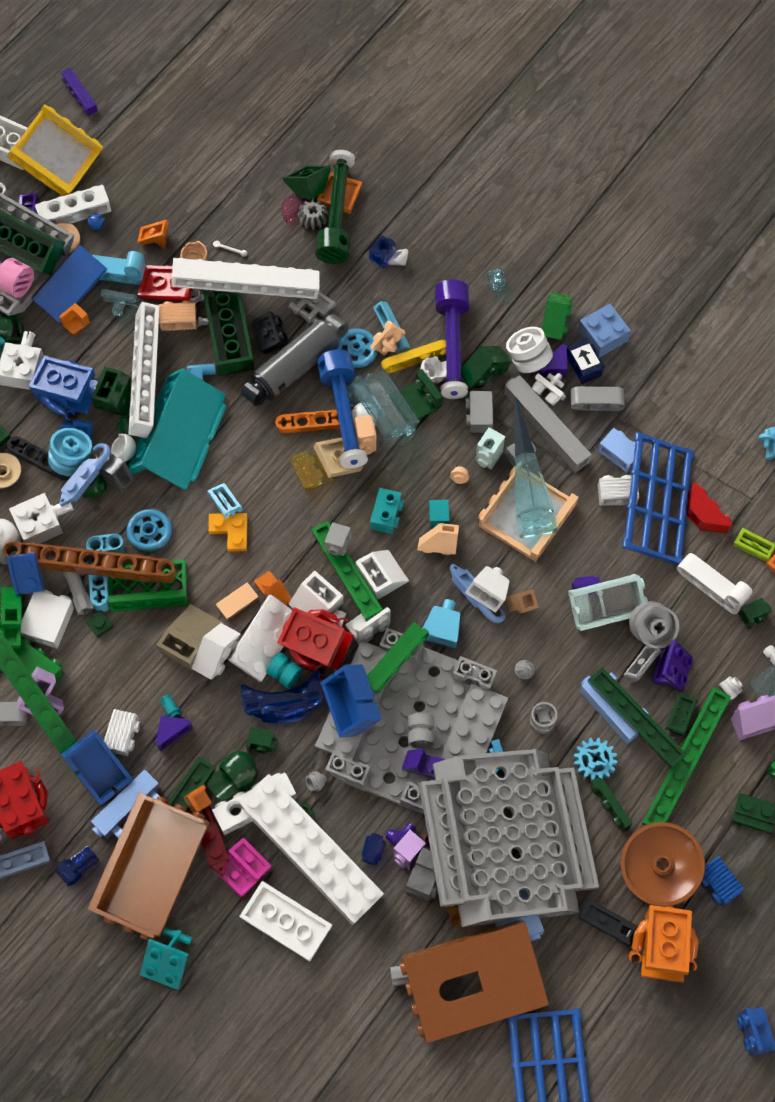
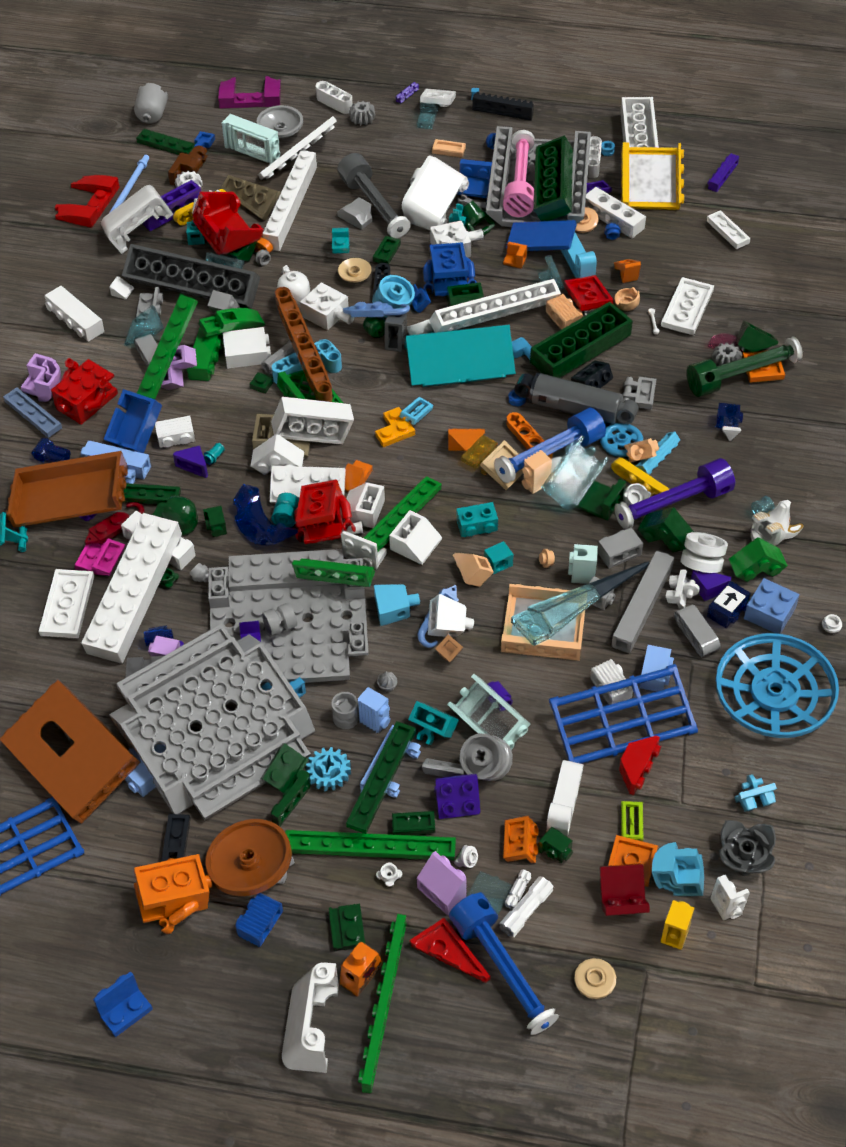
camera: 65 degrees right, 15 degrees down
(25, 573) = (269, 310): blue plate -> none
(152, 545) = (360, 377): dark azure plate -> none
(156, 128) = (728, 229): none -> white plate
(197, 799) = (139, 497): orange panel -> none
(198, 597) = (312, 420): none -> white brick
(231, 212) = (687, 306): none -> white plate
(237, 601) = (331, 457): light nougat tile -> none
(245, 278) = (622, 329): white brick -> none
(255, 411) = (515, 400): none -> blue tile
(282, 472) = (463, 438): none -> orange slope
(338, 539) = (423, 491): light grey brick -> none
(351, 700) = (274, 552): blue piece -> none
(525, 283) = (775, 524): none -> white piece
(559, 692) = (373, 710): none -> light blue brick
(582, 796) = (284, 768): none -> dark green plate
(591, 650) = (432, 721): none -> teal brick
(640, 297) = (832, 623): none -> white plate
(689, 362) = (780, 678): none -> dark azure dish
(714, 754) = (389, 868): none -> white plate
(736, 638) = (520, 839): none -> orange bracket

